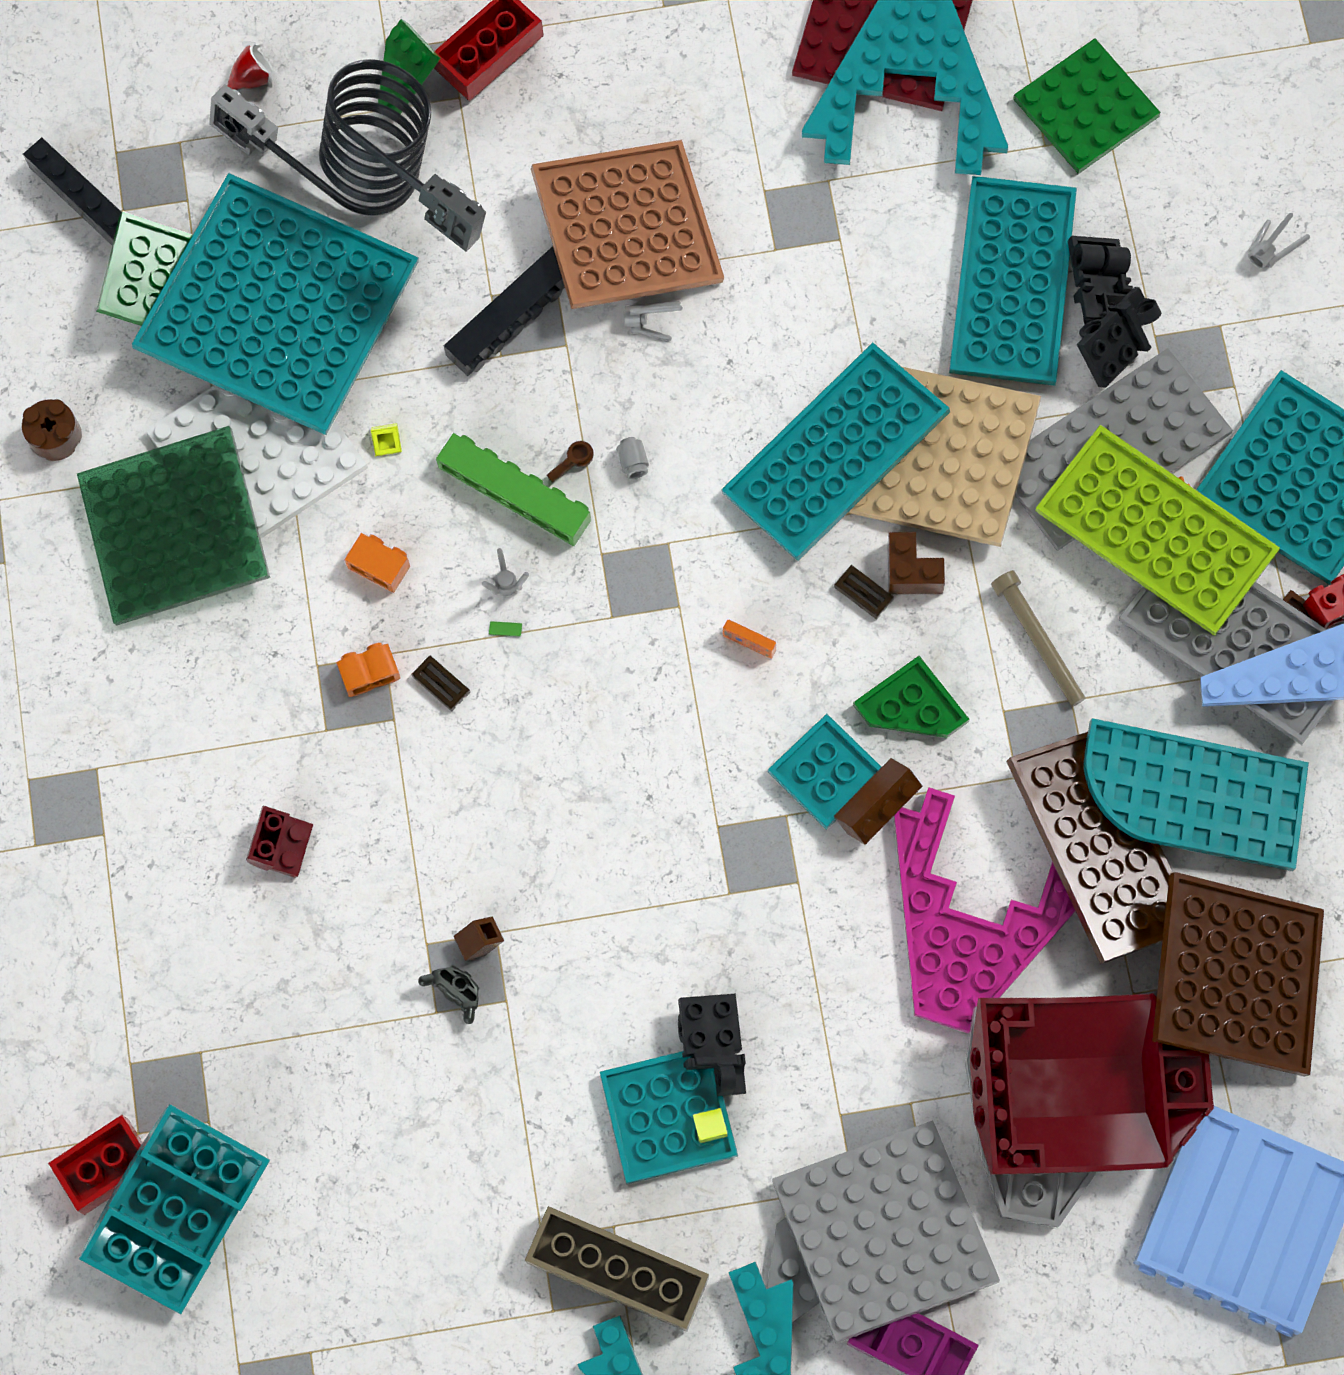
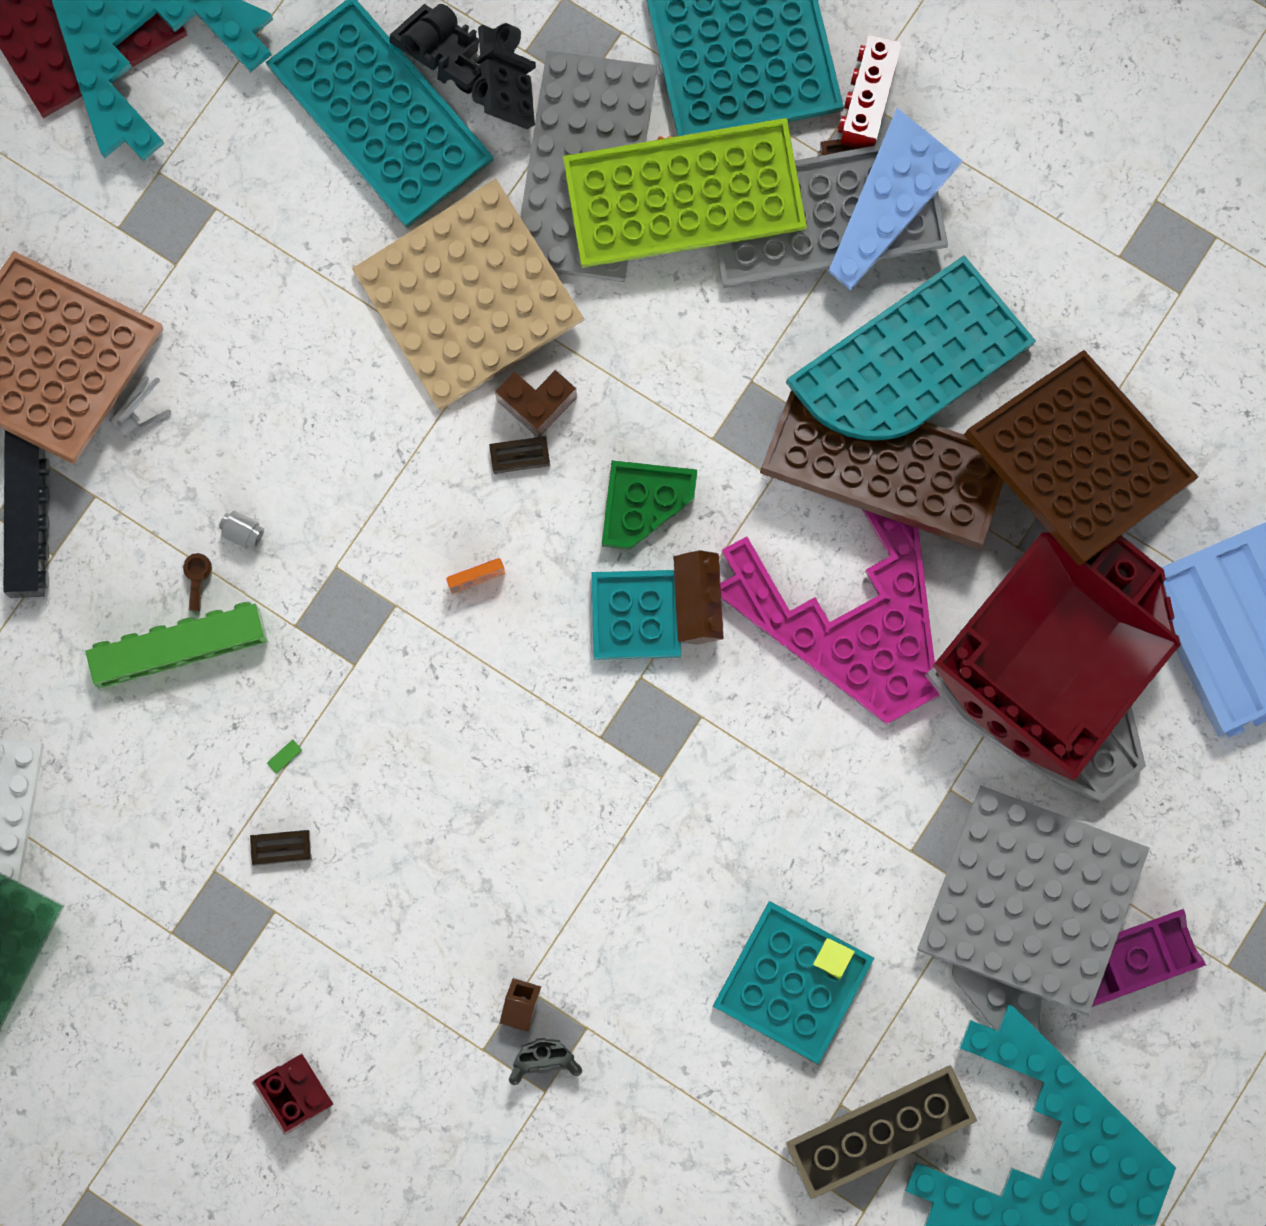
camera: 50 degrees left, 5 degrees up
(368, 669) = (215, 895): orange brick -> none
(378, 562) = (133, 807): orange brick -> none
(386, 439) = (34, 708): neon yellow slope -> none
(505, 580) = (246, 720): light grey plant -> none
(711, 1038) = (767, 896): black plate -> none
(835, 451) = (389, 371): teal plate -> none
(1008, 586) = (621, 344): dark tan piece -> none

